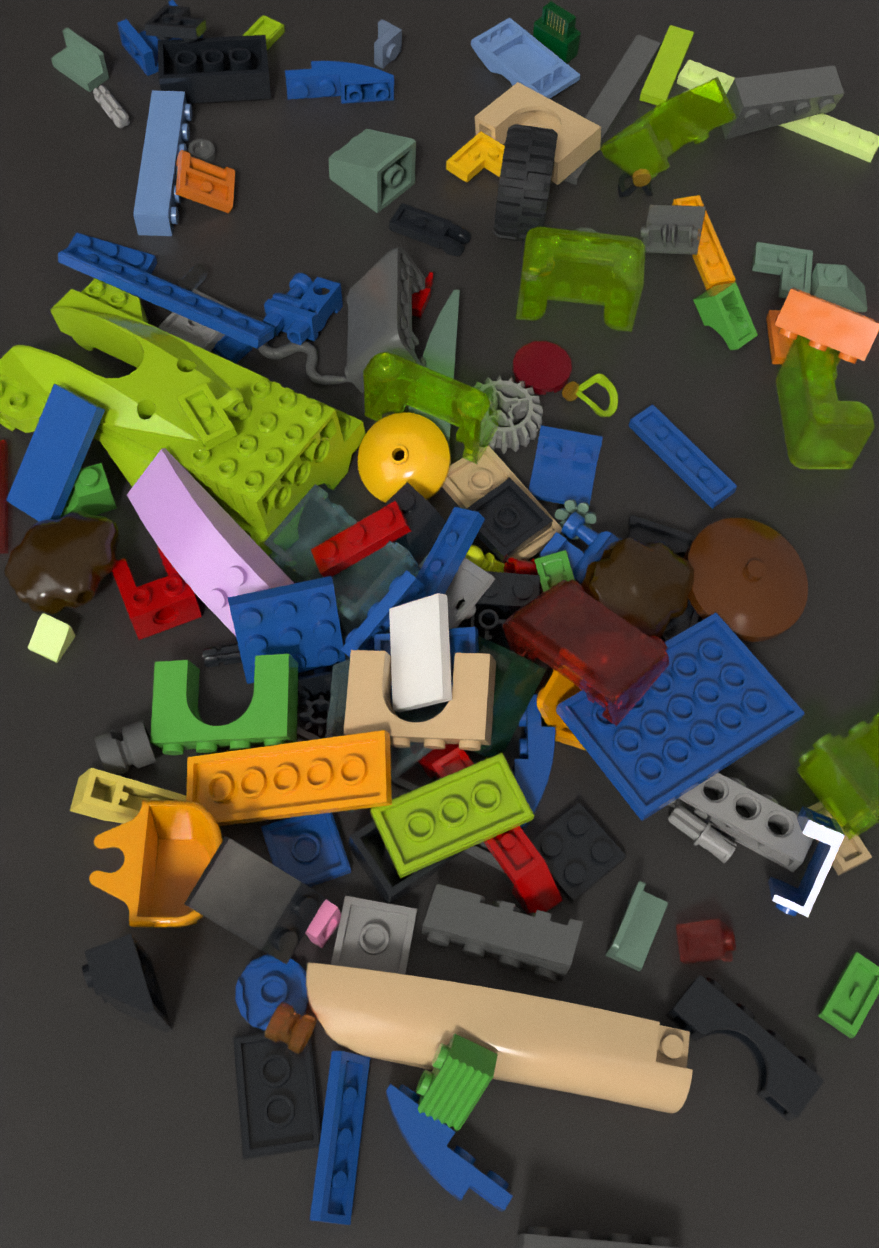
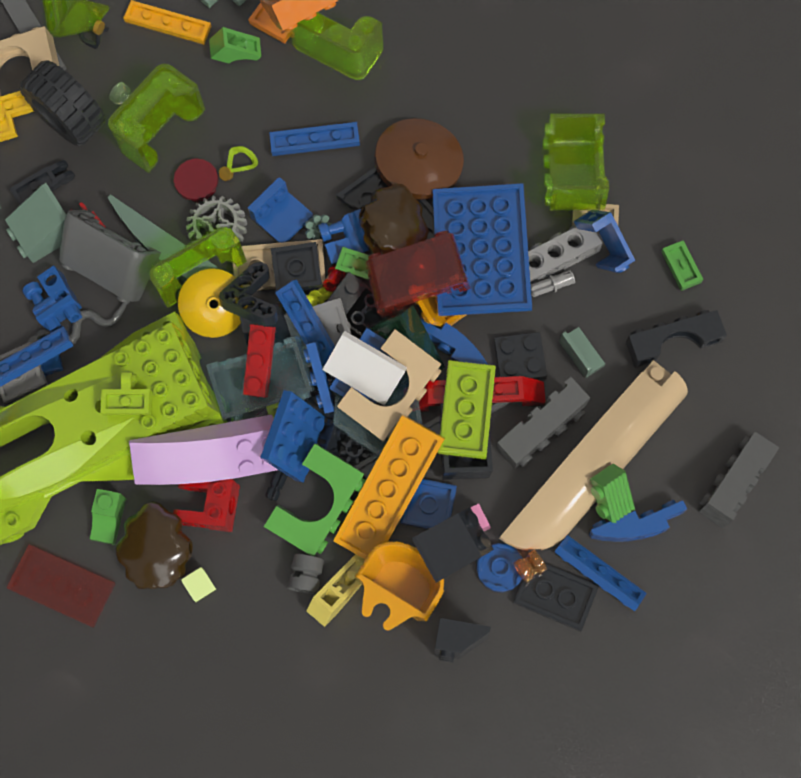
camera: 50 degrees left, 10 degrees up
(55, 454) = (74, 514): blue tile -> none
(373, 237) = (37, 224): none -> sand green slope
(374, 935) = (504, 495): light grey plate -> none
(459, 481) = (234, 297): none -> black beam
(673, 229) = (148, 34): dark grey hinge -> none
(705, 941) = (611, 321): clear red bracket -> none

